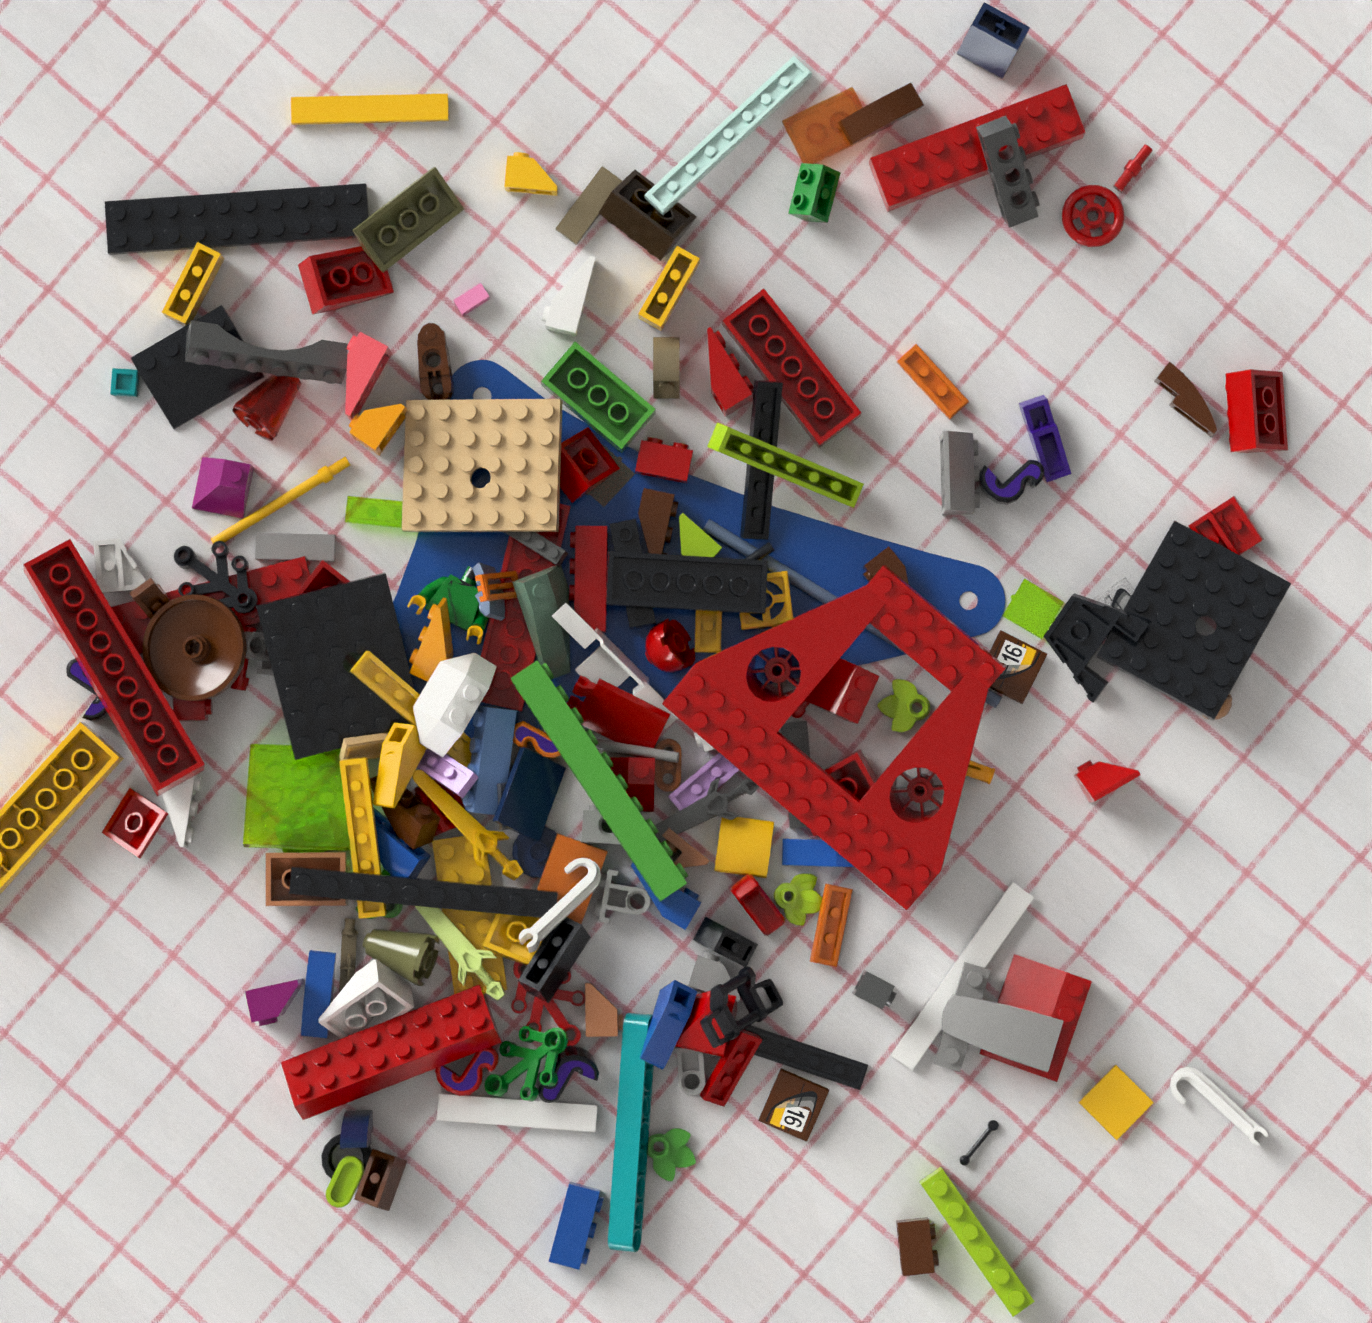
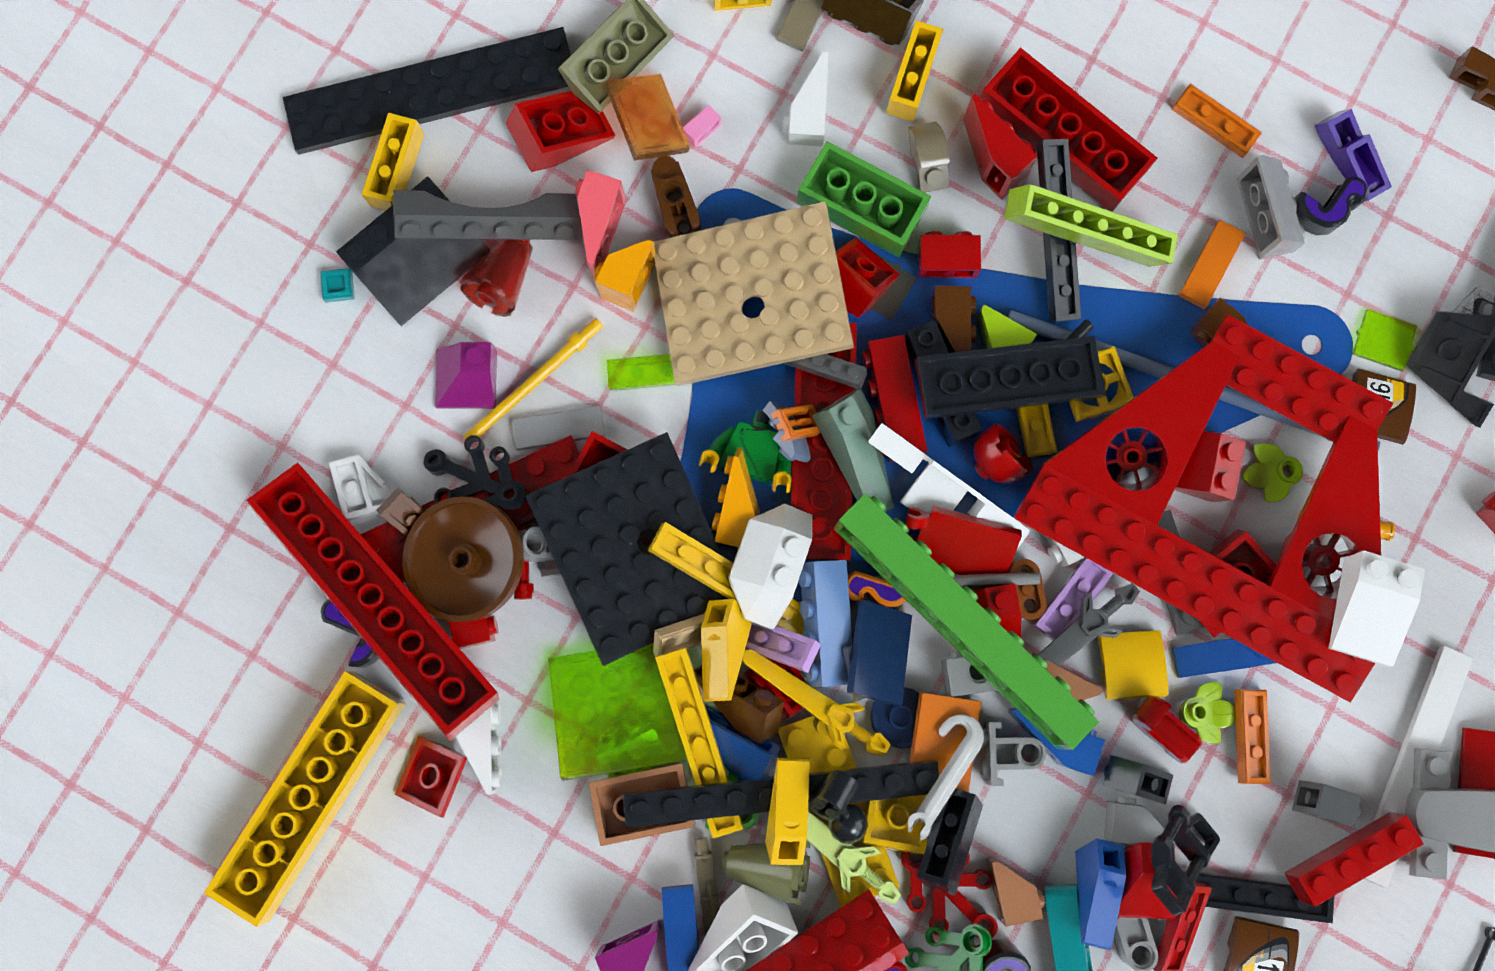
camera: 15 degrees left, 5 degrees down
(423, 906) = (788, 812): none -> yellow slope
(424, 285) = (647, 117): none -> clear orange tile
(470, 925) = (845, 820): none -> black beam
(884, 1038) = (1353, 858): none -> red brick
(895, 512) = (1211, 264): none -> orange tile
(936, 836) = (1375, 607): none -> white slope

